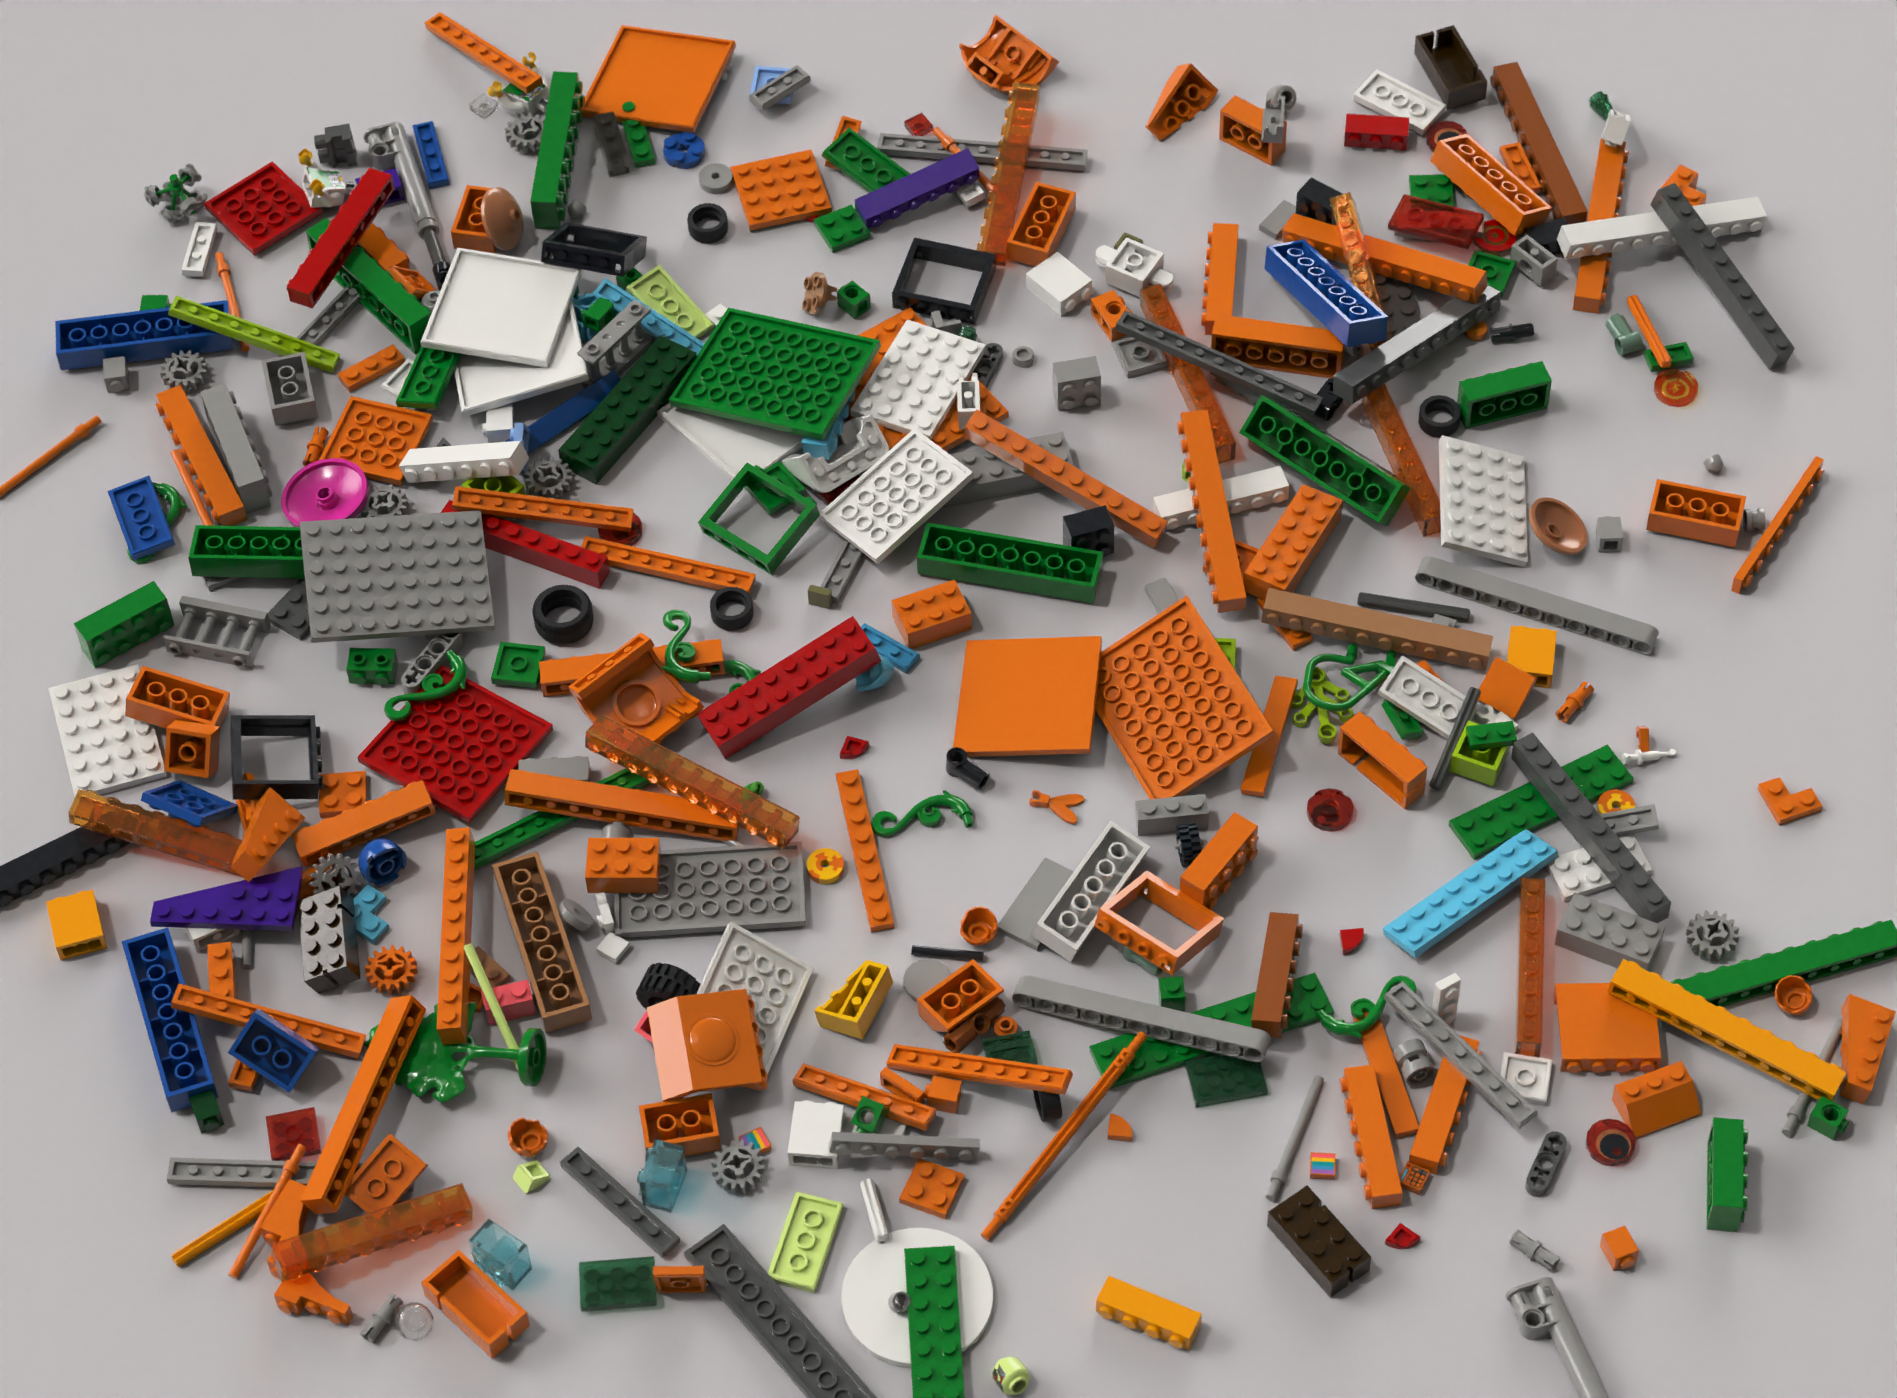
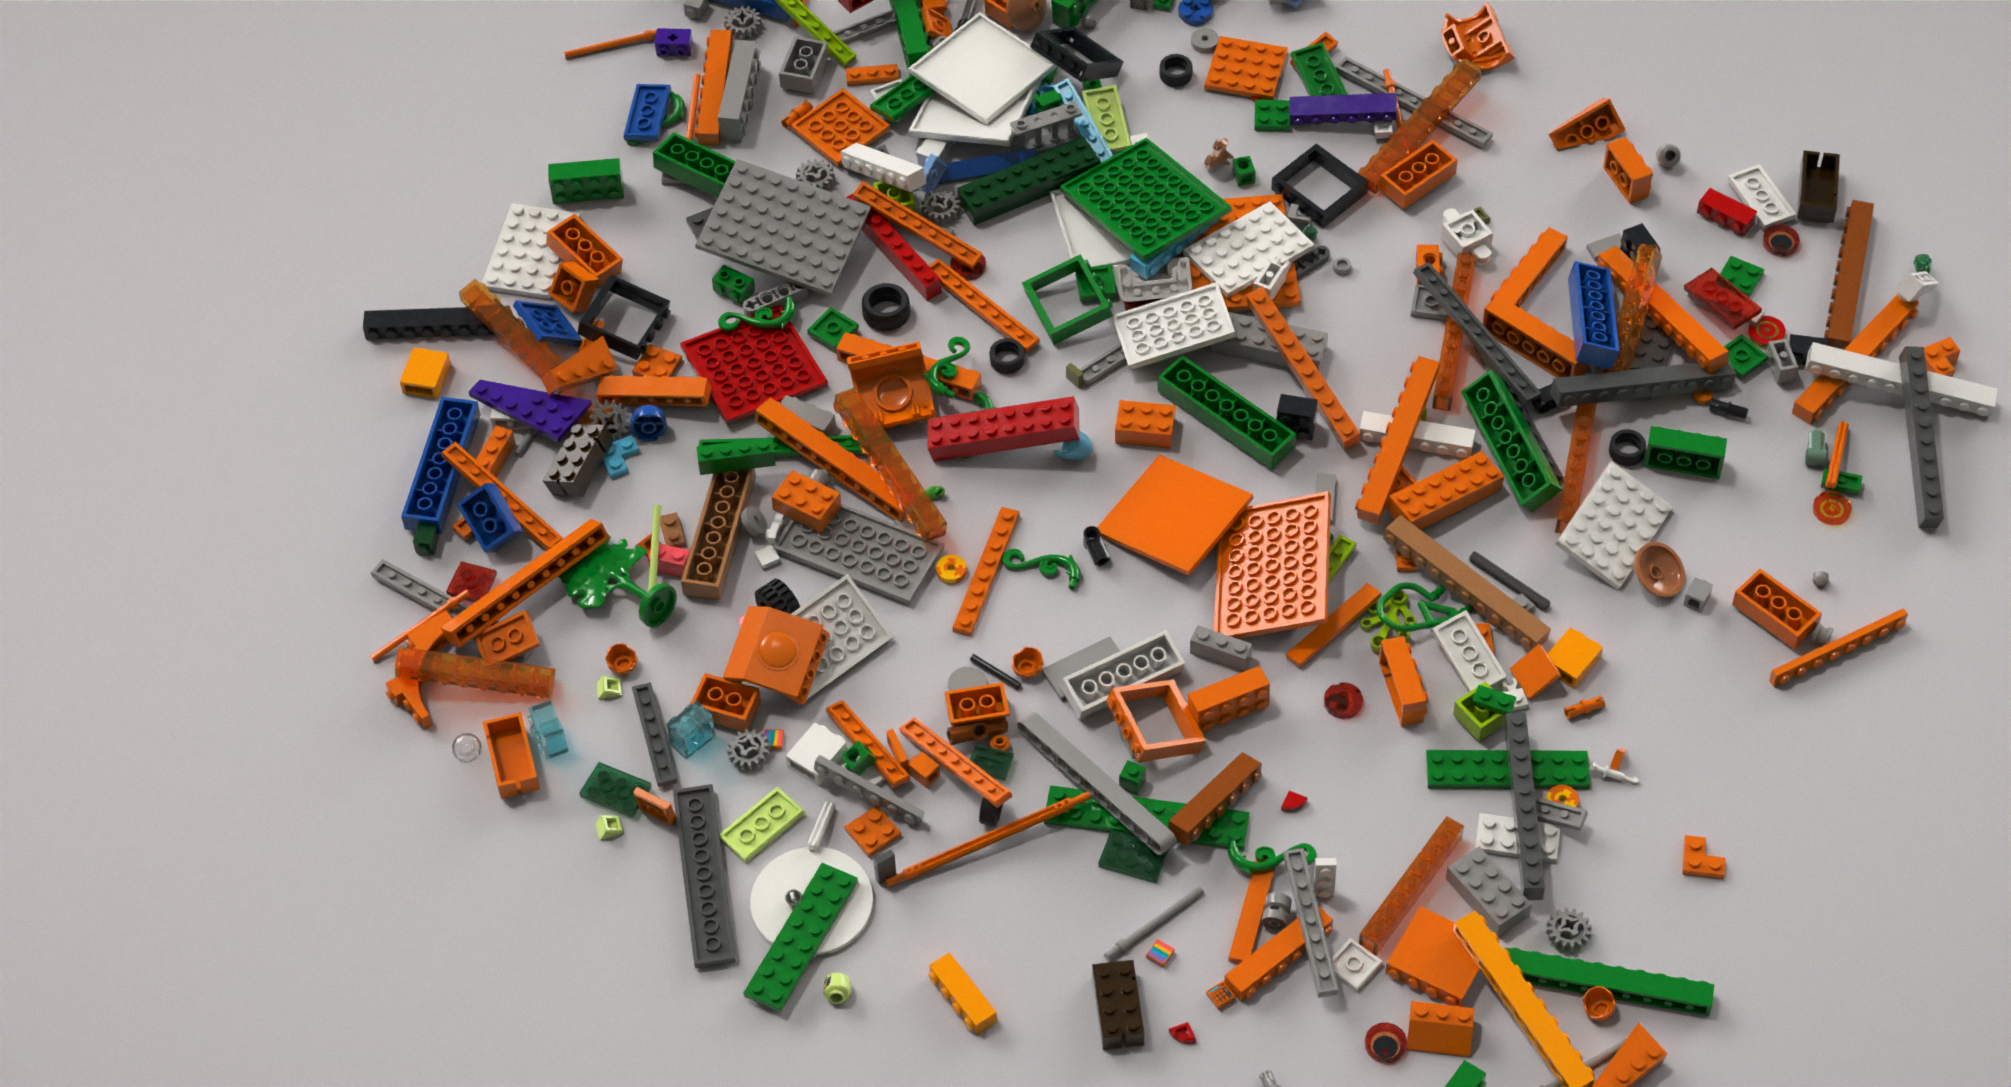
camera: 30 degrees right, 0 degrees up
(118, 426) = (673, 42): none -> dark purple brick
(217, 613) = (651, 200): light grey fence -> none
(220, 1231) = (381, 625): light orange axle -> none
(325, 492) = (779, 148): dark pink dish -> none
(381, 1318) = (447, 734): light grey pin -> none
(391, 969) = (608, 501): orange gear -> none
(455, 934) = (663, 492): orange brick -> none
(515, 851) = (735, 456): none -> green brick
(635, 1329) = (608, 826): none -> yellowish green slope
(853, 748) = (1027, 494): red tile -> none
(857, 1002) = (906, 674): yellow wedge -> none
(898, 654) = (1098, 434): dark azure tile -> none
(918, 125) = (1378, 62): clear red plate -> none
(977, 1218) = (884, 866): none -> dark grey tile
(1058, 804) = (1147, 603): orange piece -> none
(1059, 284) = (1403, 223): white brick -> none
(1076, 383) = (1363, 302): light grey brick -> none
(1119, 1128) = (1031, 854): orange tile -> none
(1188, 843) = (1217, 671): black wheel -> none
(1273, 121) = (1640, 168): light grey hinge -> none
(1371, 1137) = (1208, 950): orange brick -> none
(1405, 724) = (1440, 665): green plate -> none
(1445, 760) = (1487, 677): dark grey axle -> none
(1469, 893) = (1405, 809): medium azure plate -> none
(1490, 183) = (1786, 288): orange brick -> none
(1519, 165) = (1822, 288): orange plate -> none
(1537, 605) = (1605, 622): light grey beam -> none
(1547, 1174) = (1322, 1042): dark grey beam -> none

